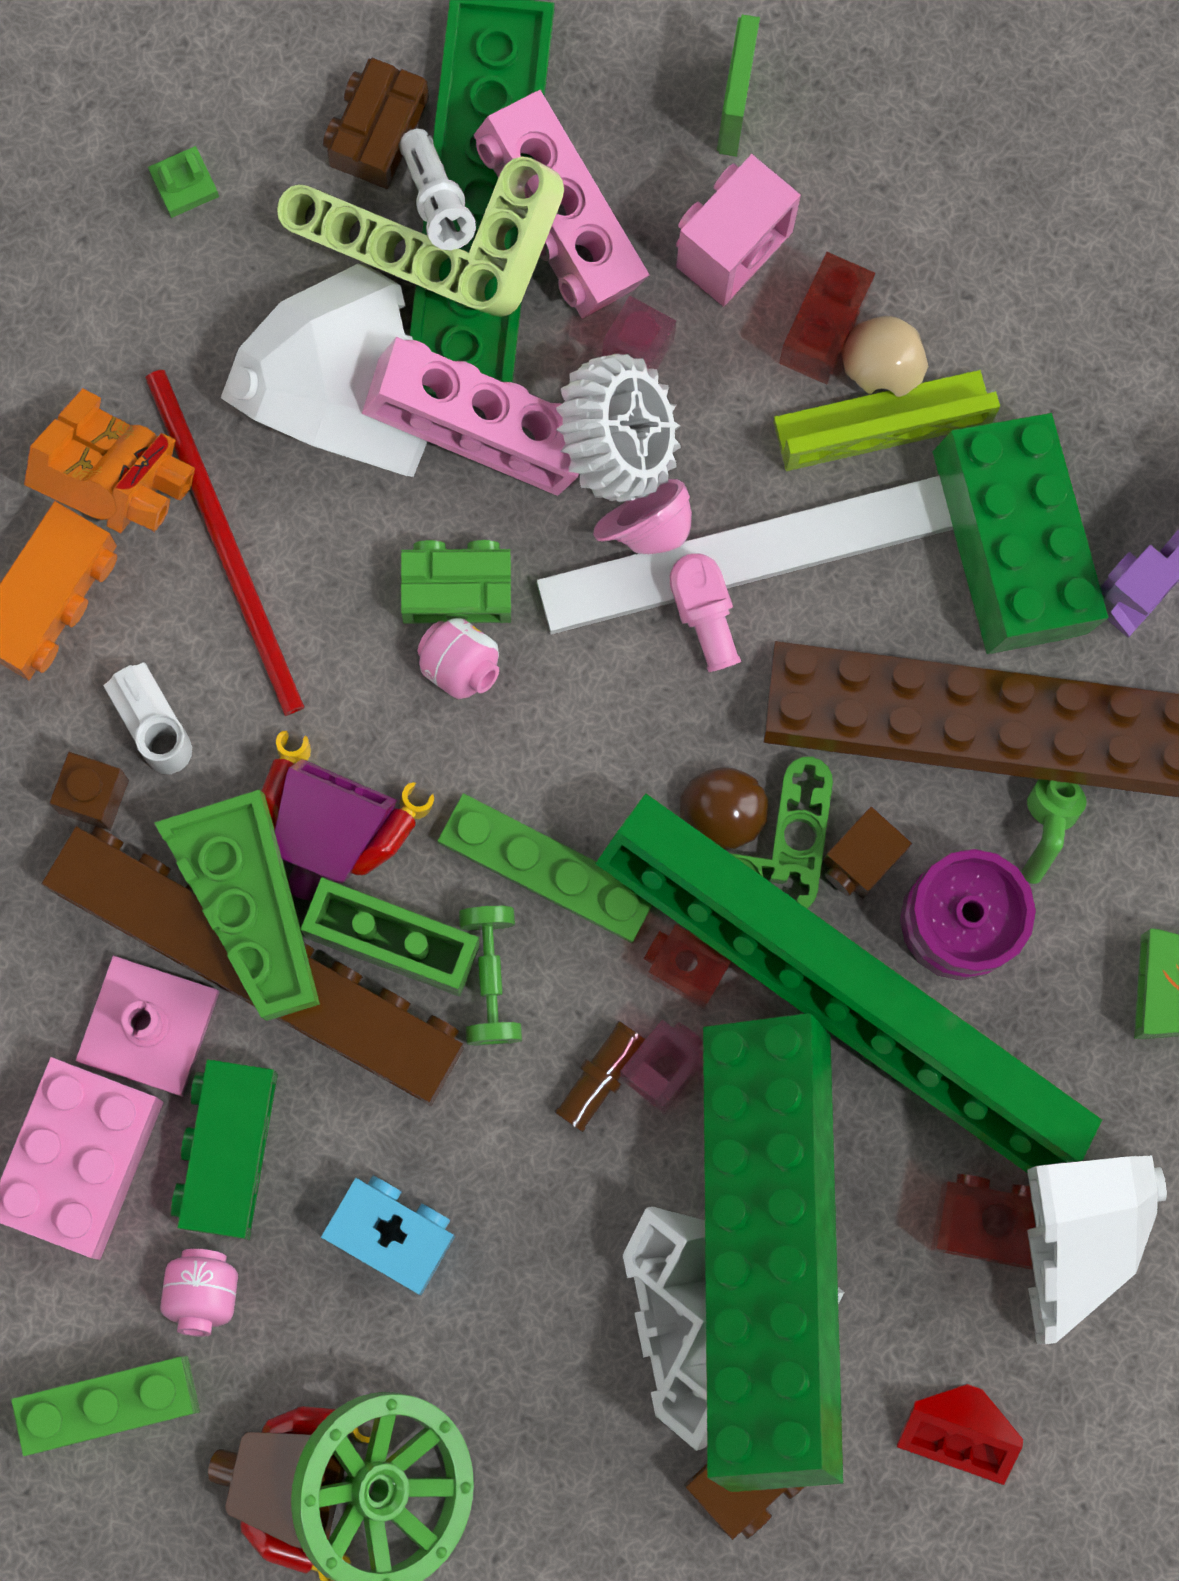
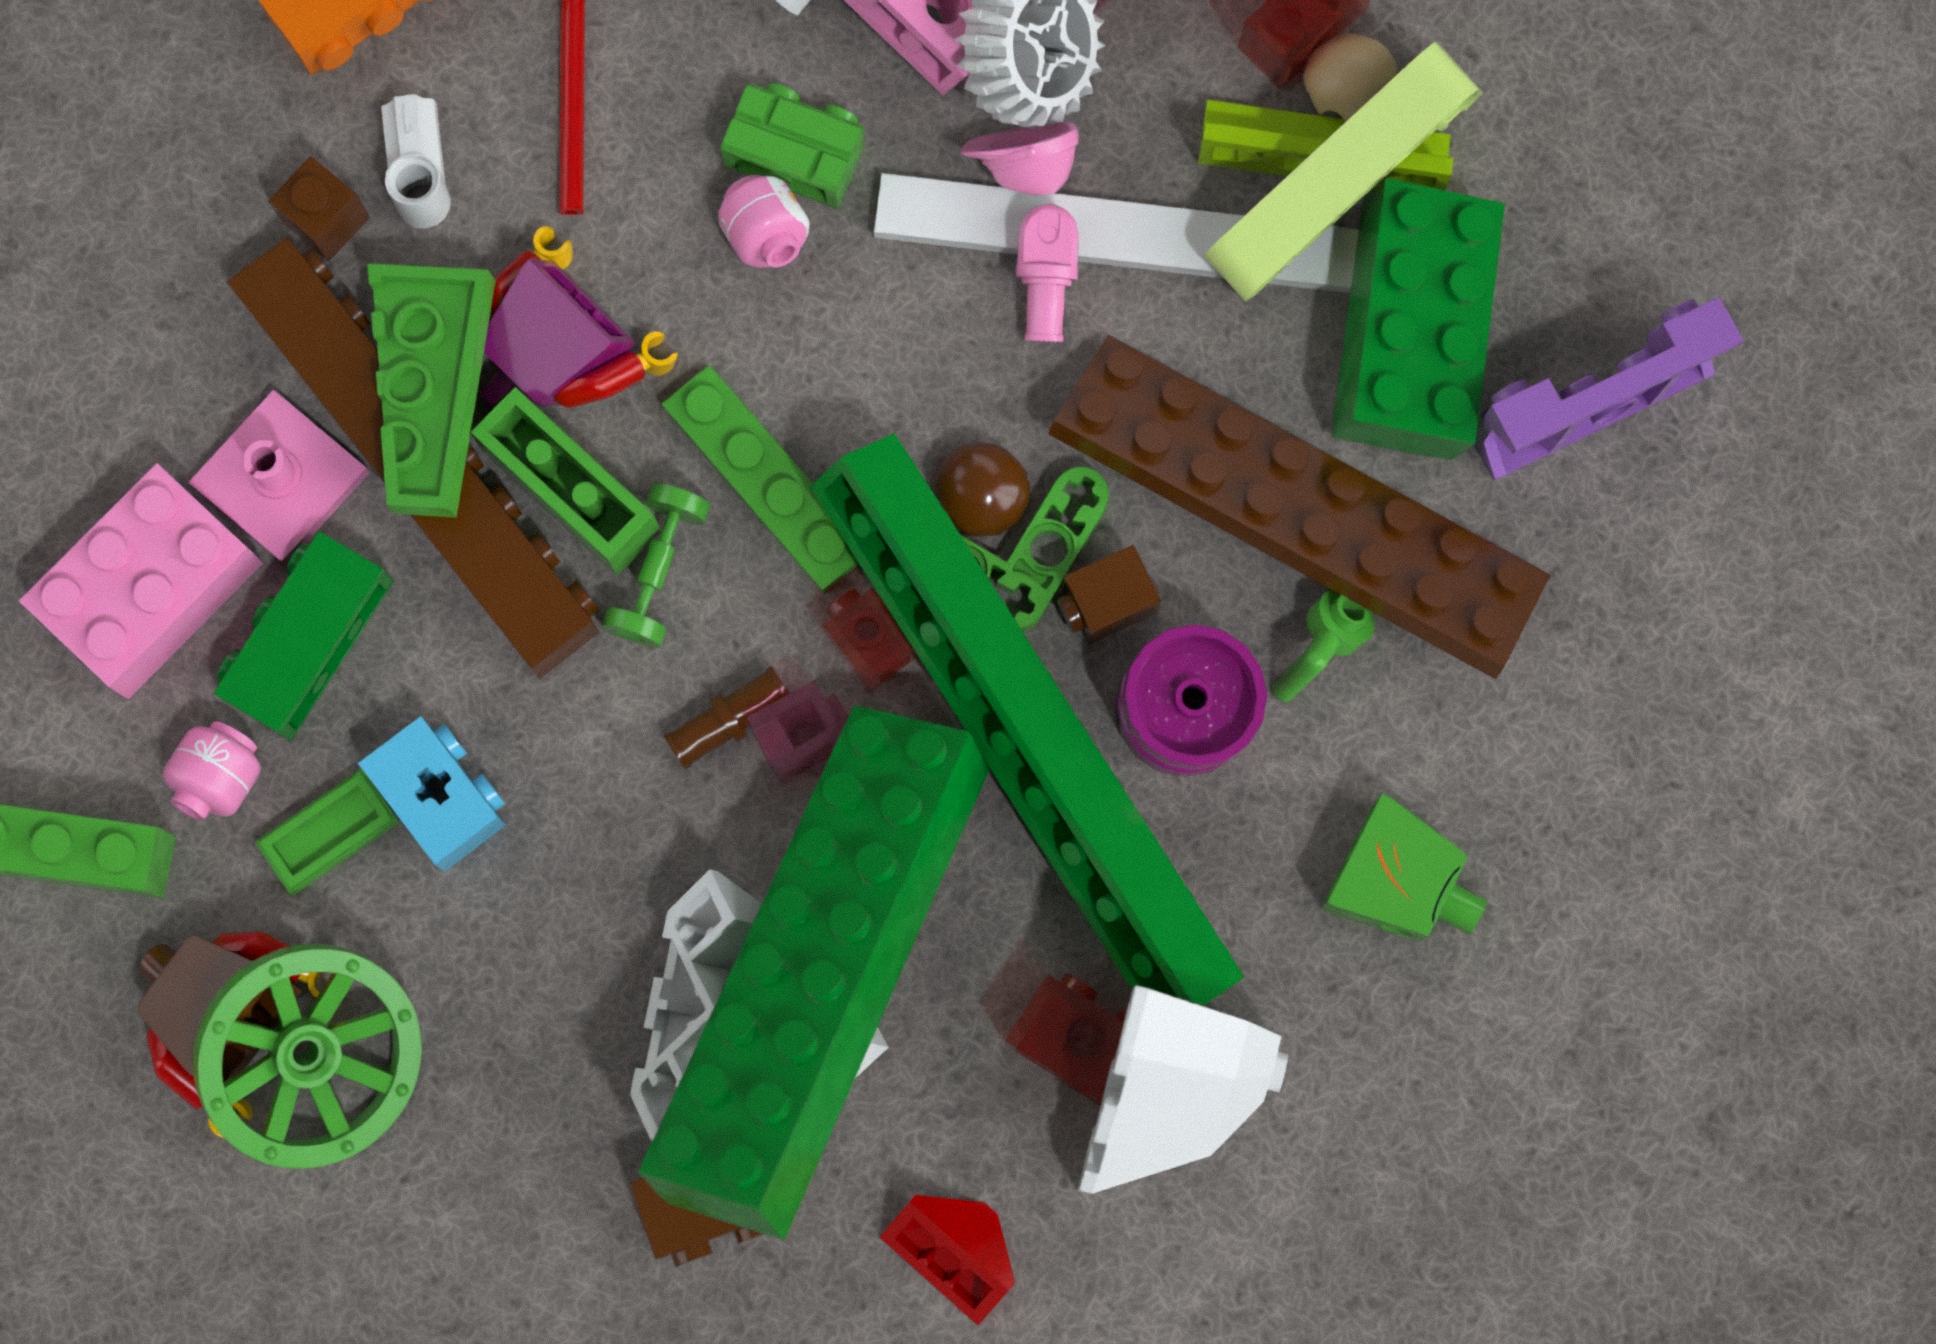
camera: 25 degrees right, 0 degrees up
(312, 1302) = (327, 832): none -> bright green tile
(927, 416) = (1343, 170): none -> yellowish green beam

